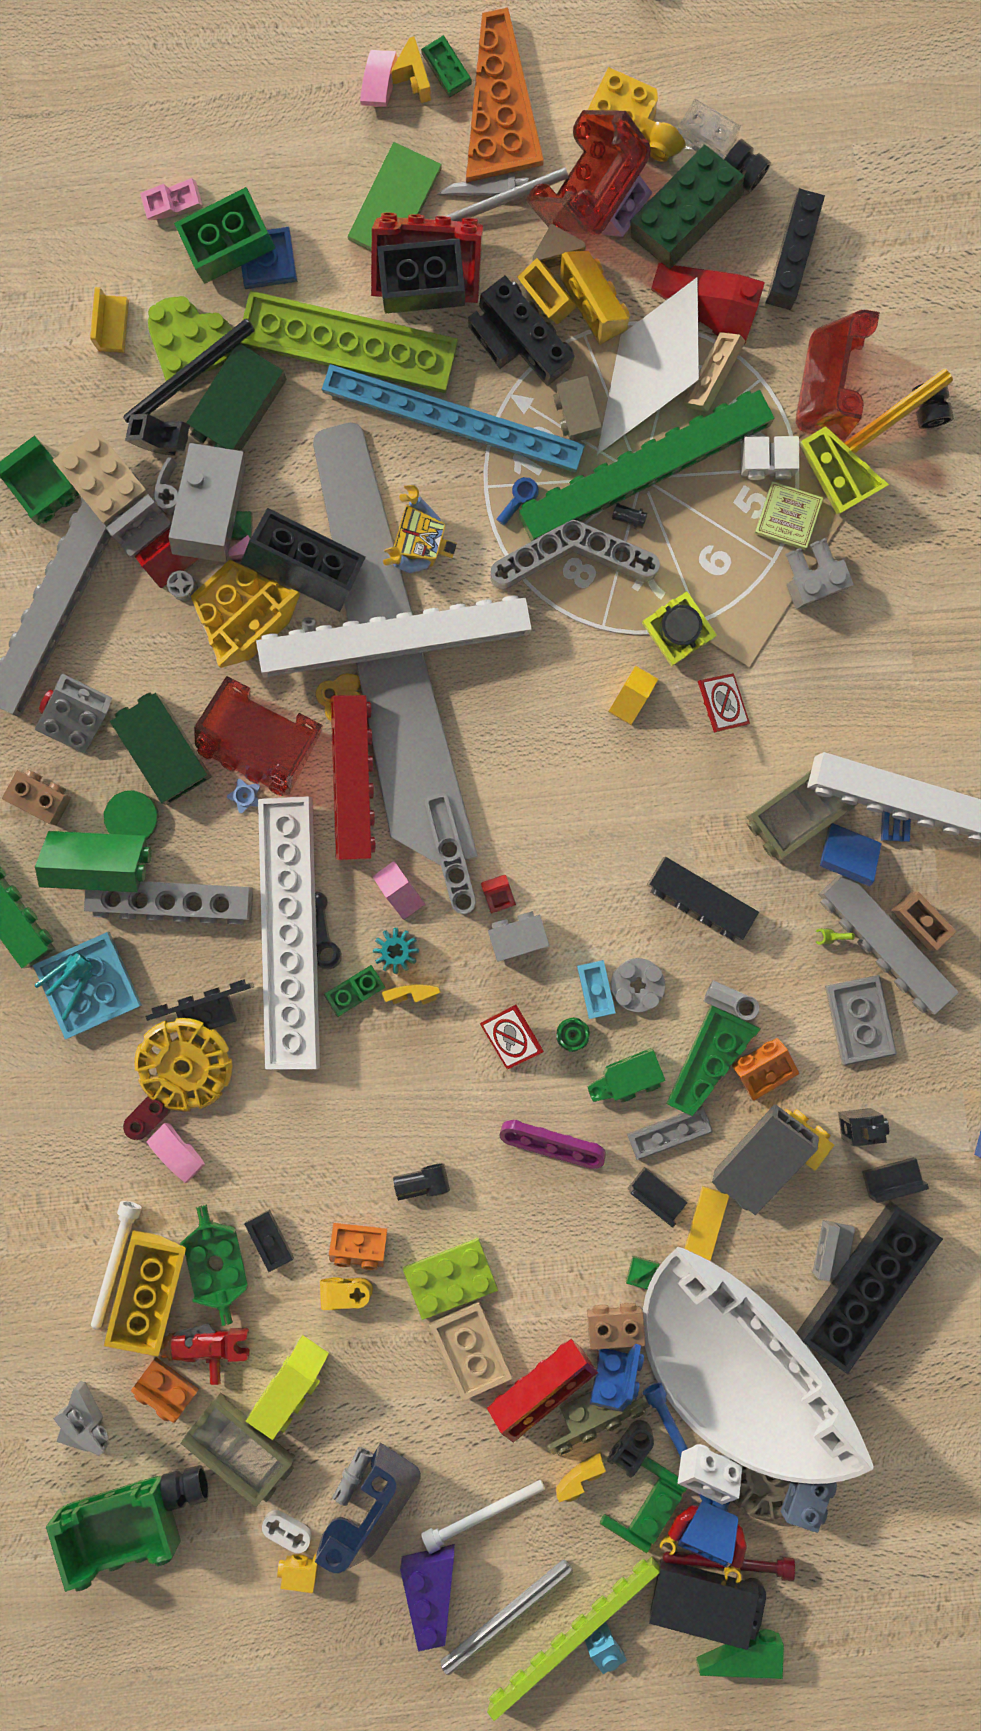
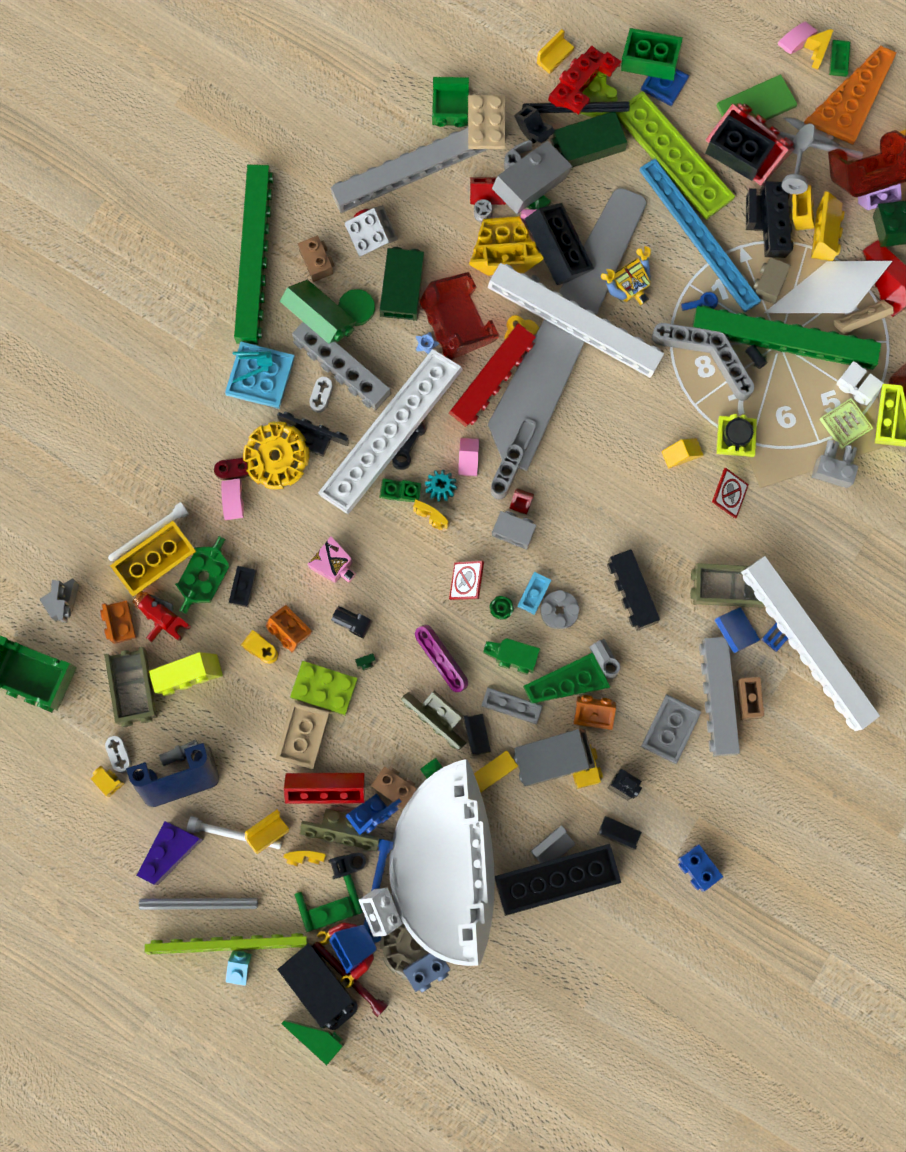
camera: 40 degrees right, 10 degrees down
(139, 525) = (485, 162): light grey bracket -> none
(163, 332) = (578, 77): none -> red bracket
(172, 201) = (638, 19): bright pink slope -> none
(181, 949) = (317, 393): none -> white beam
(183, 1488) = (83, 681): black wheel -> none
(346, 1134) = (332, 562): none -> bright pink torso
(474, 1215) = (365, 662): none -> dark green plate
(486, 208) = (795, 182): none -> light grey piece
(519, 1487) = (266, 832): none -> yellow panel
(555, 244) = (826, 184): dark tan slope -> none
(599, 1211) = (437, 714): none -> olive bracket
(831, 936) = (690, 668): lime hand -> none

